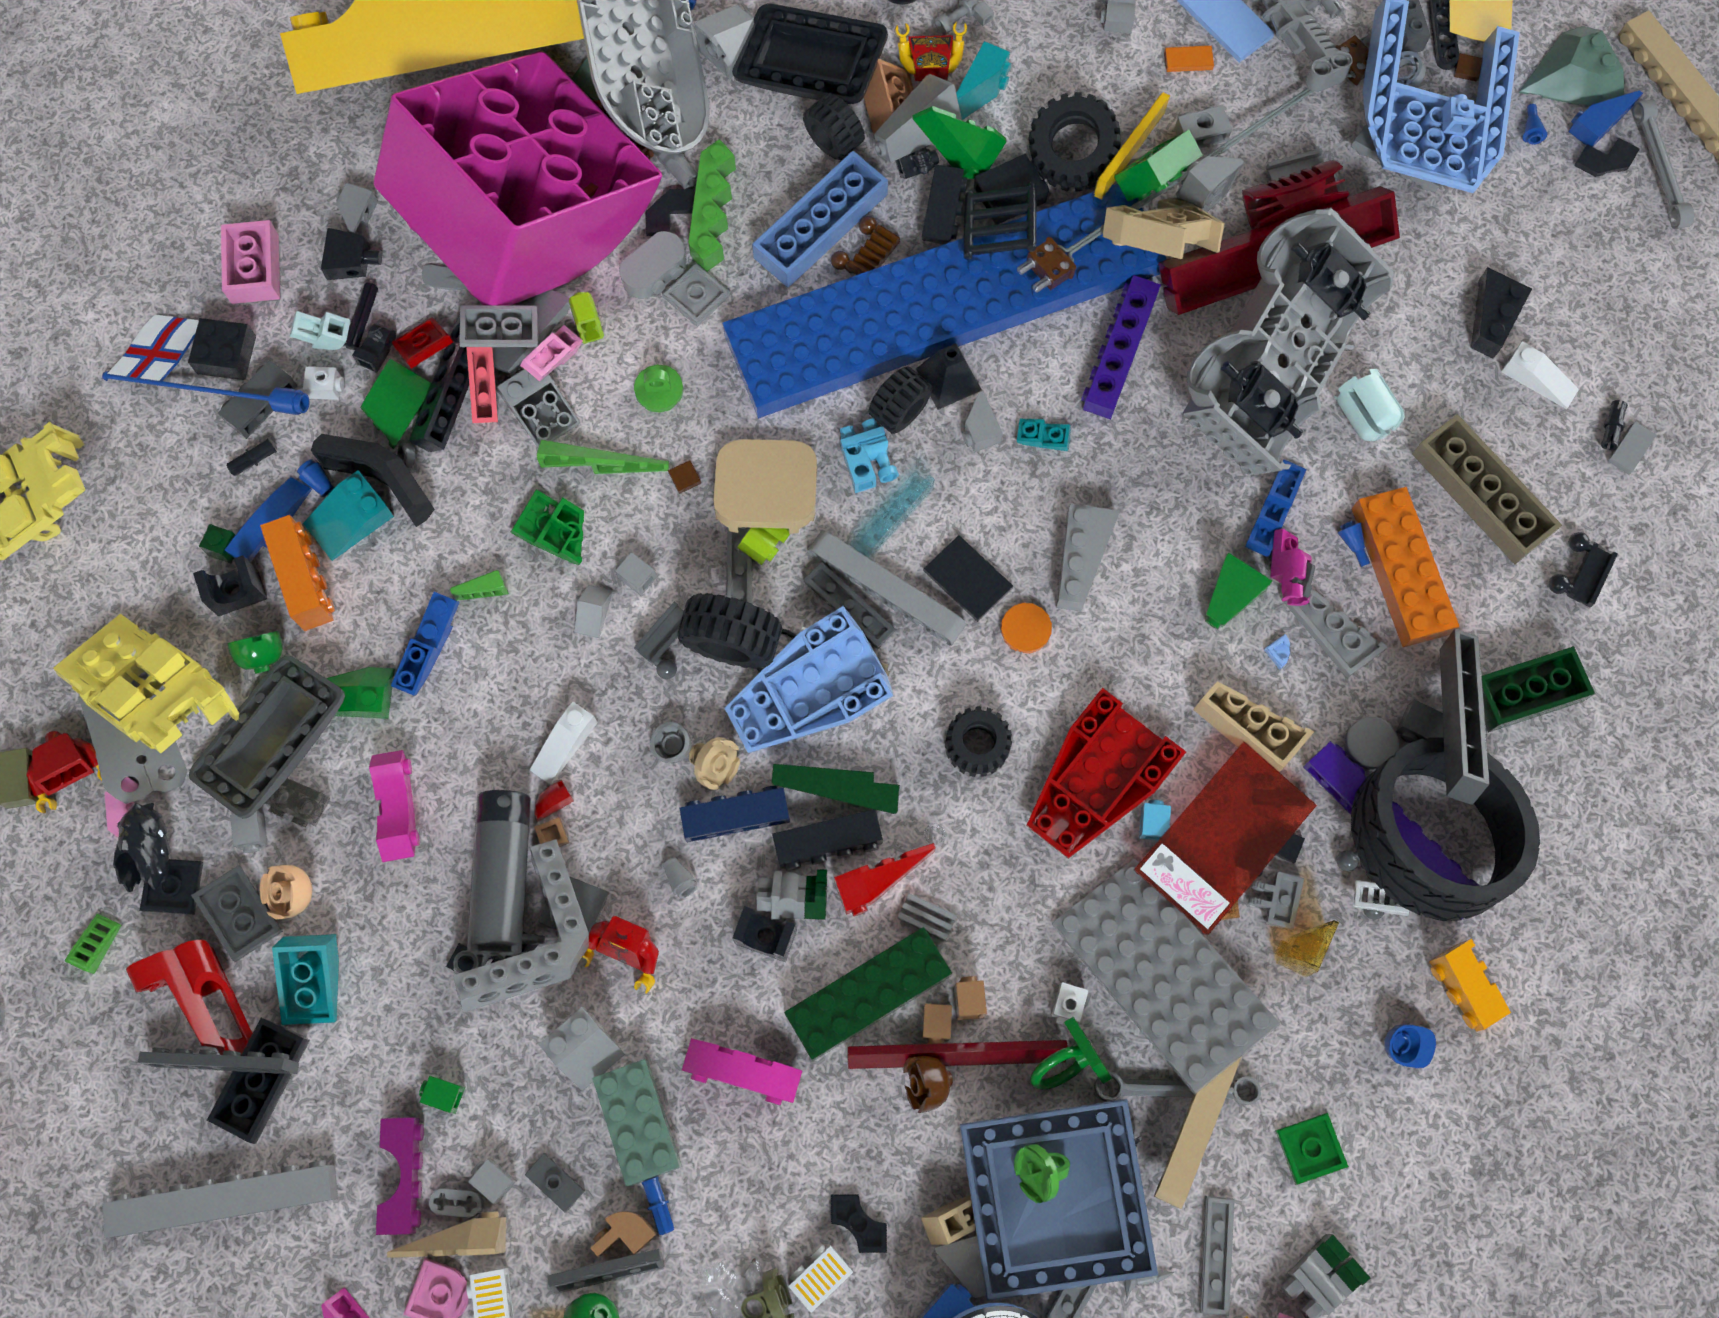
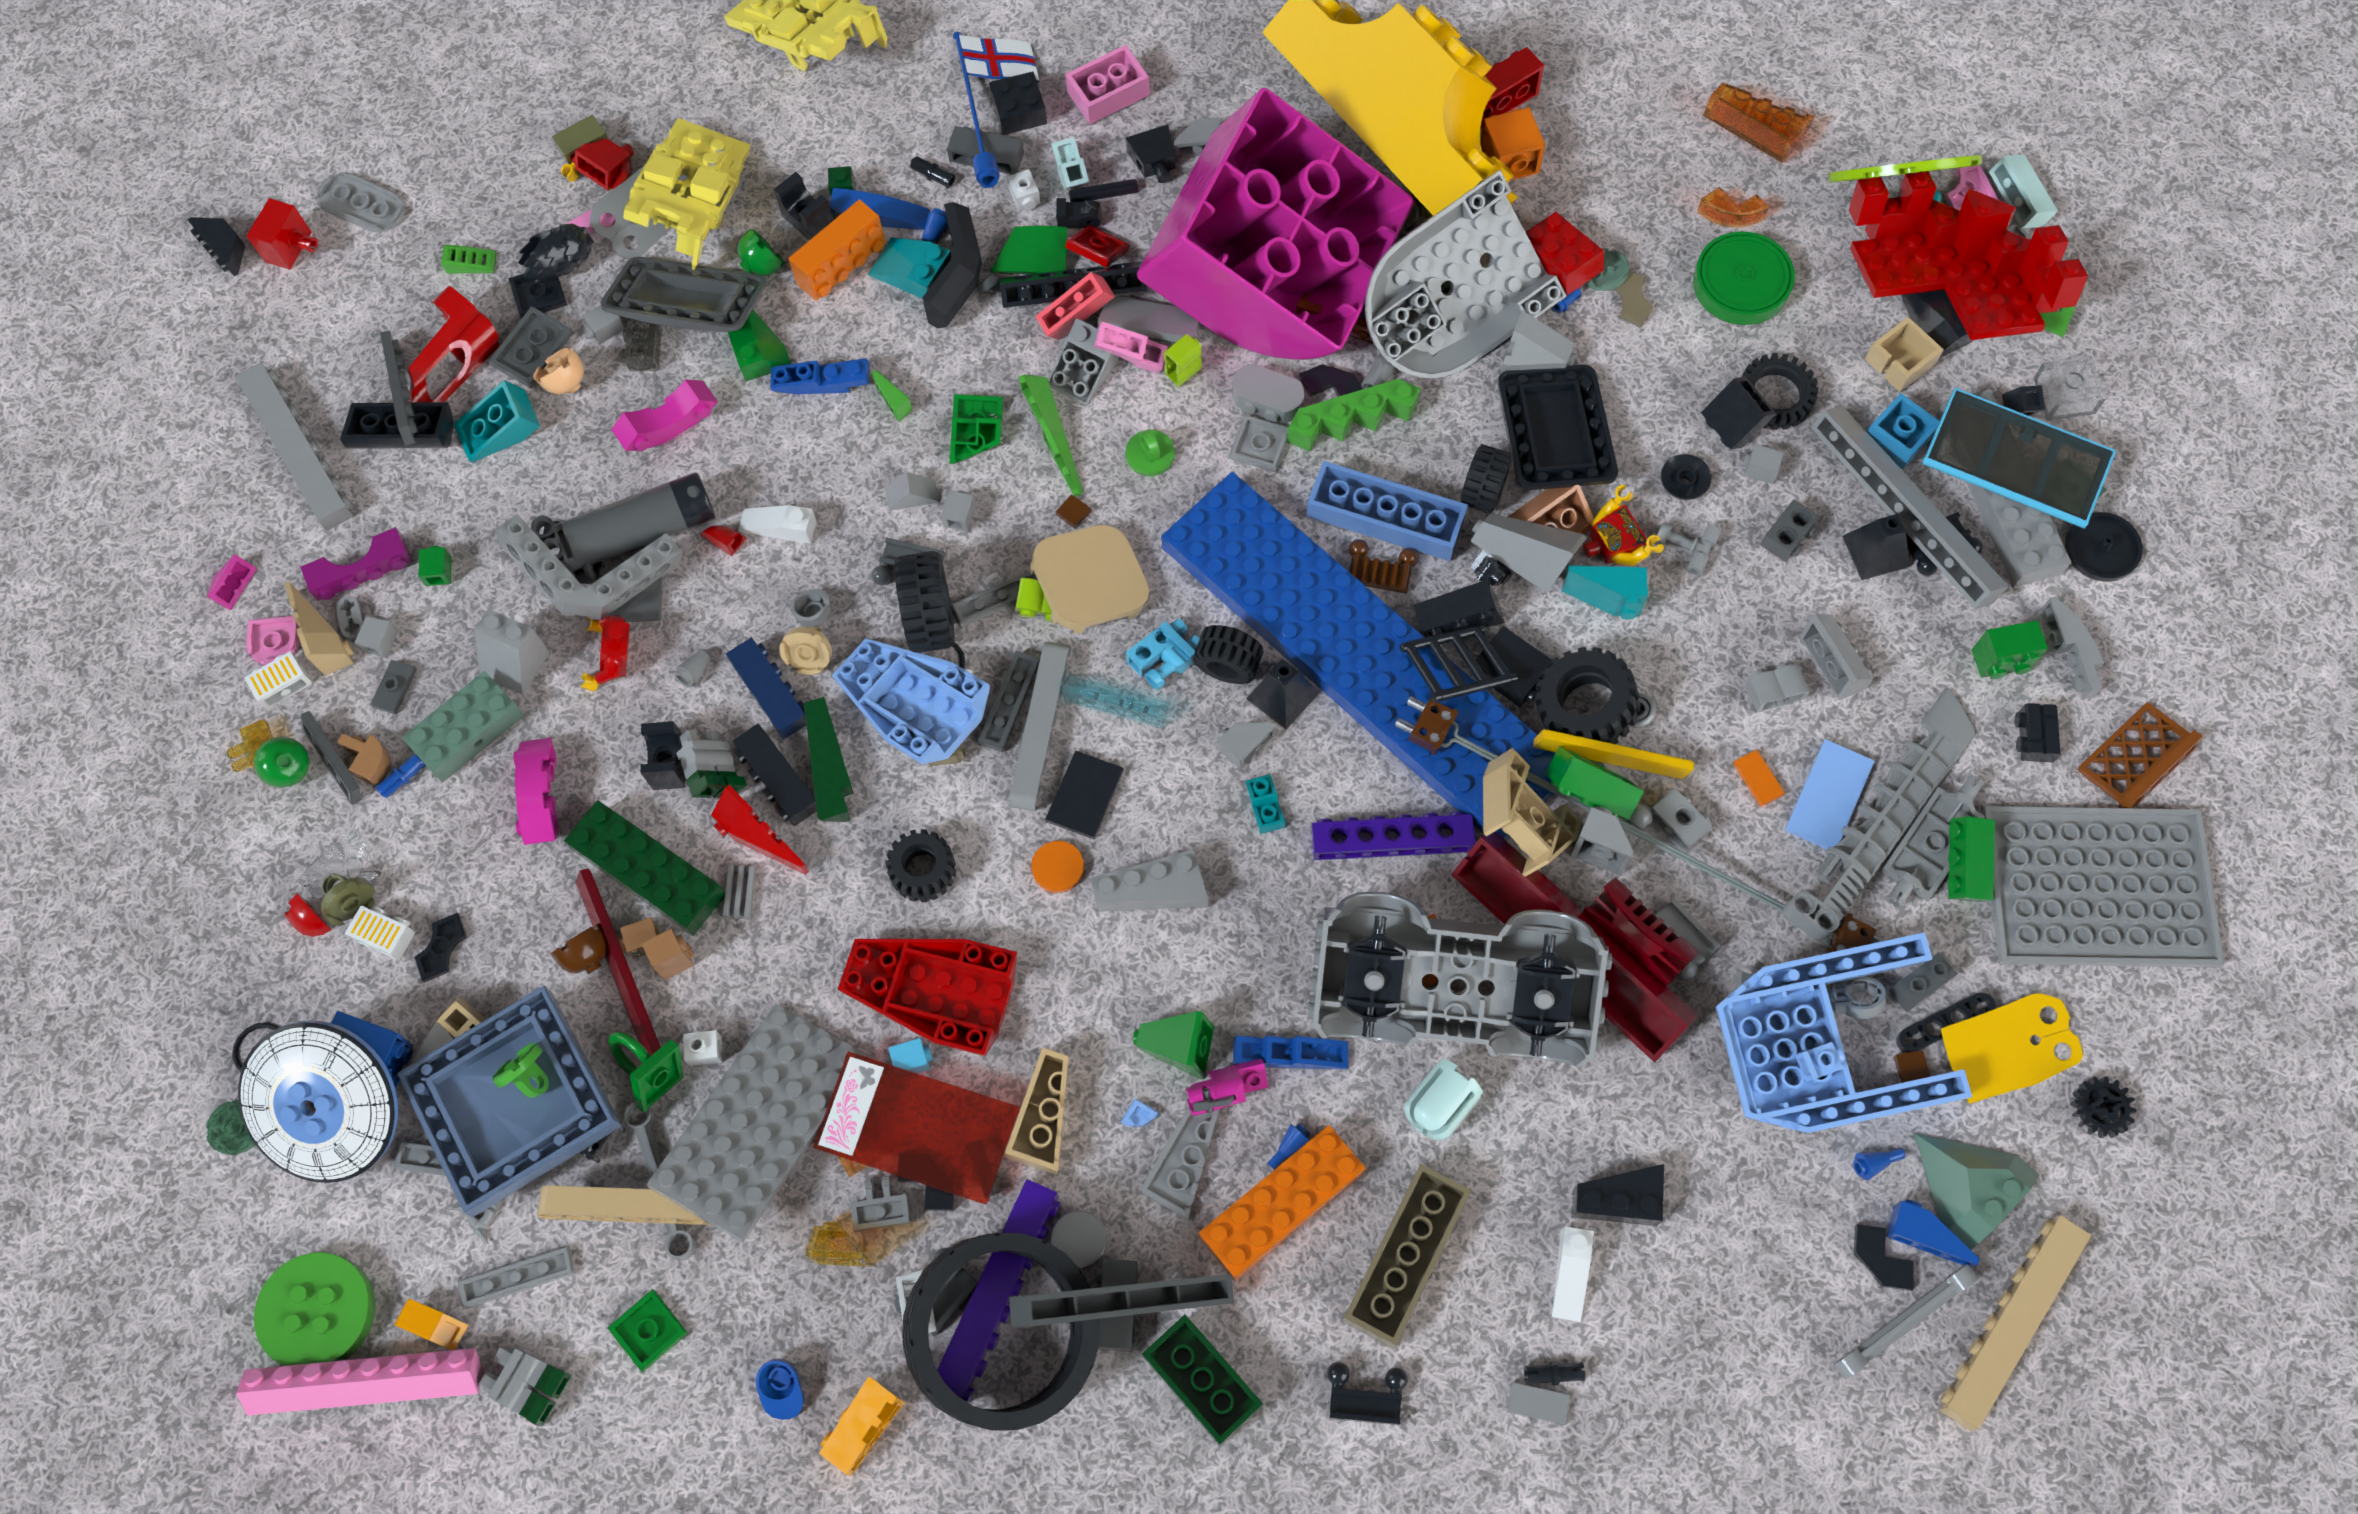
camera: 70 degrees right, 5 degrees down
(498, 326) = (1122, 289): light grey slope -> none
(552, 830) = (693, 550): medium nougat plate -> none
(960, 141) = (1522, 597): green wedge -> none

